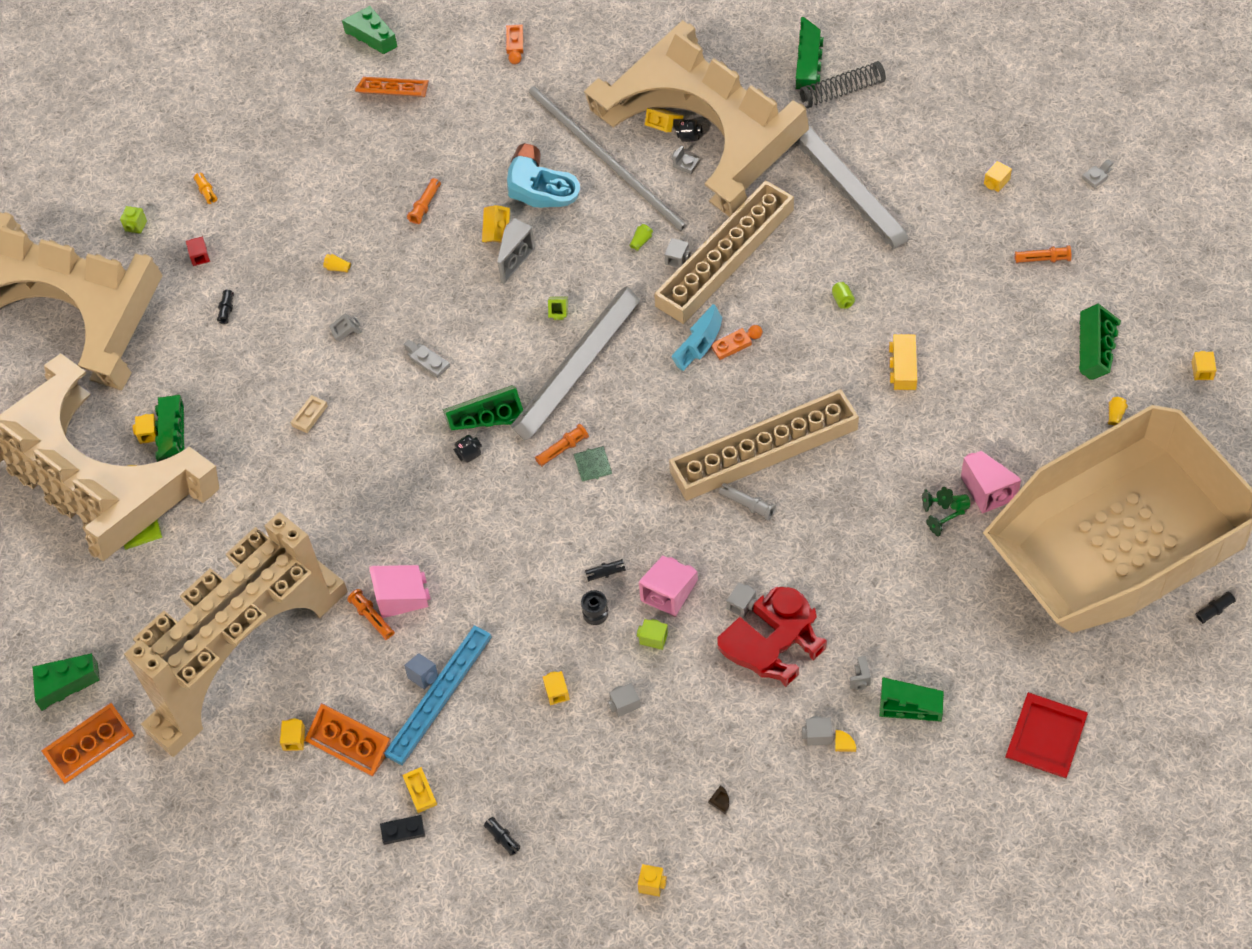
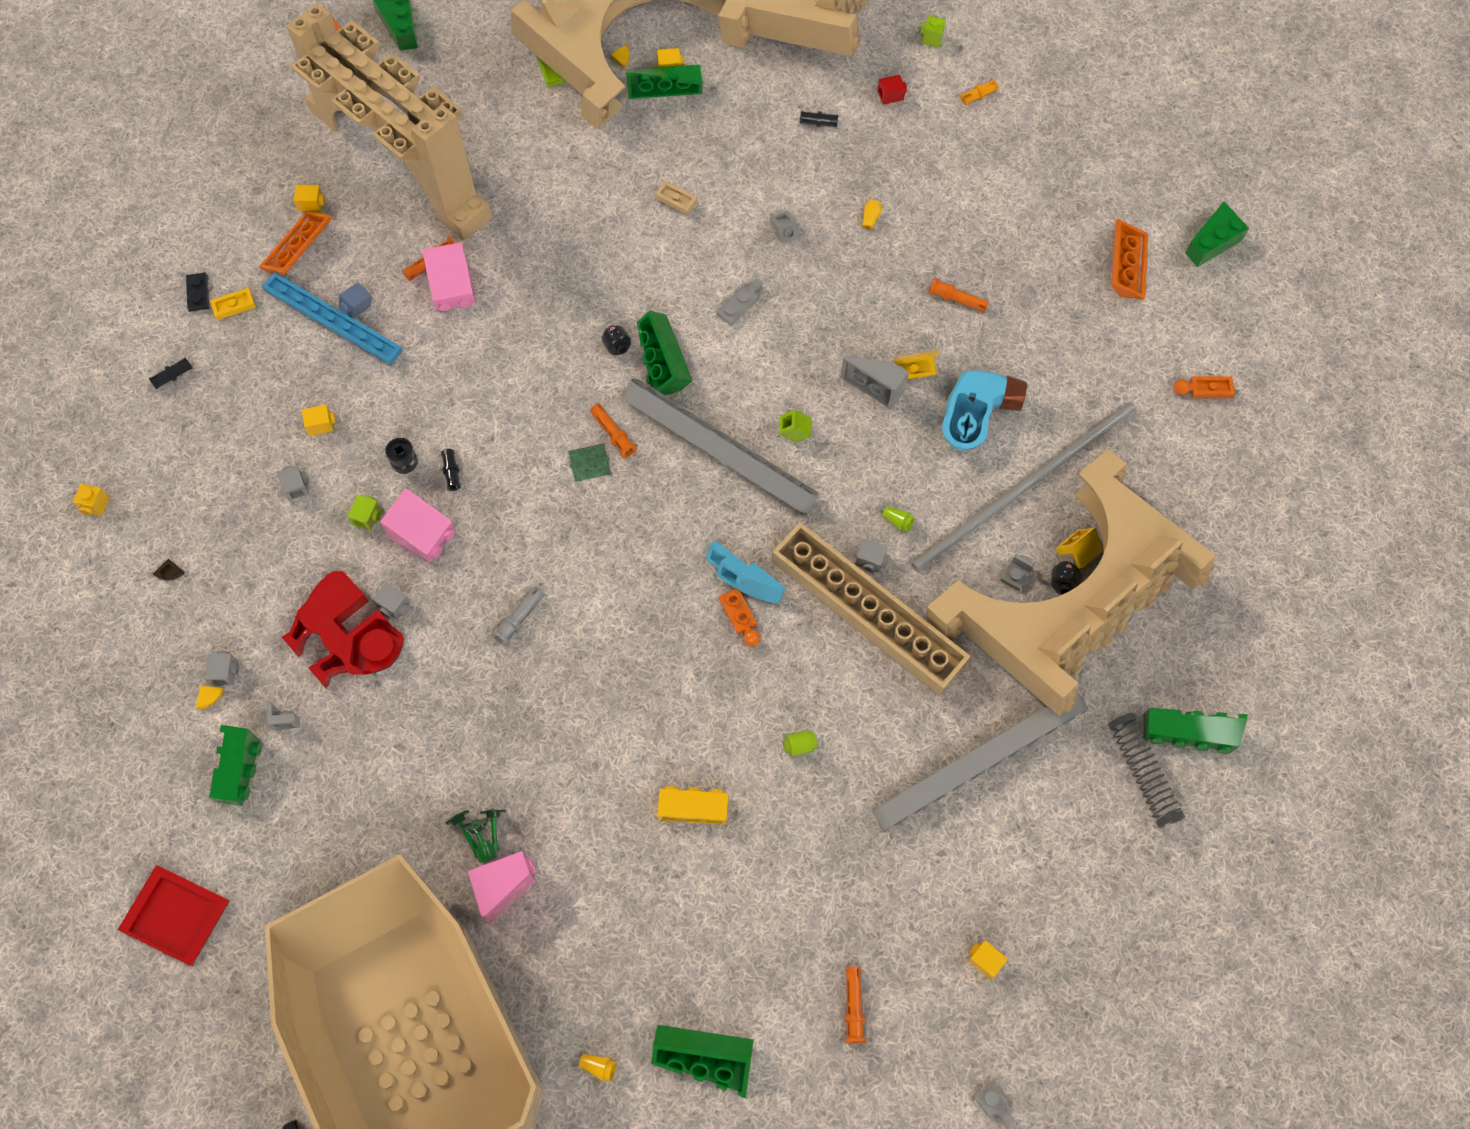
camera: 85 degrees right, 10 degrees up
(763, 444) = (587, 637): tan brick -> none

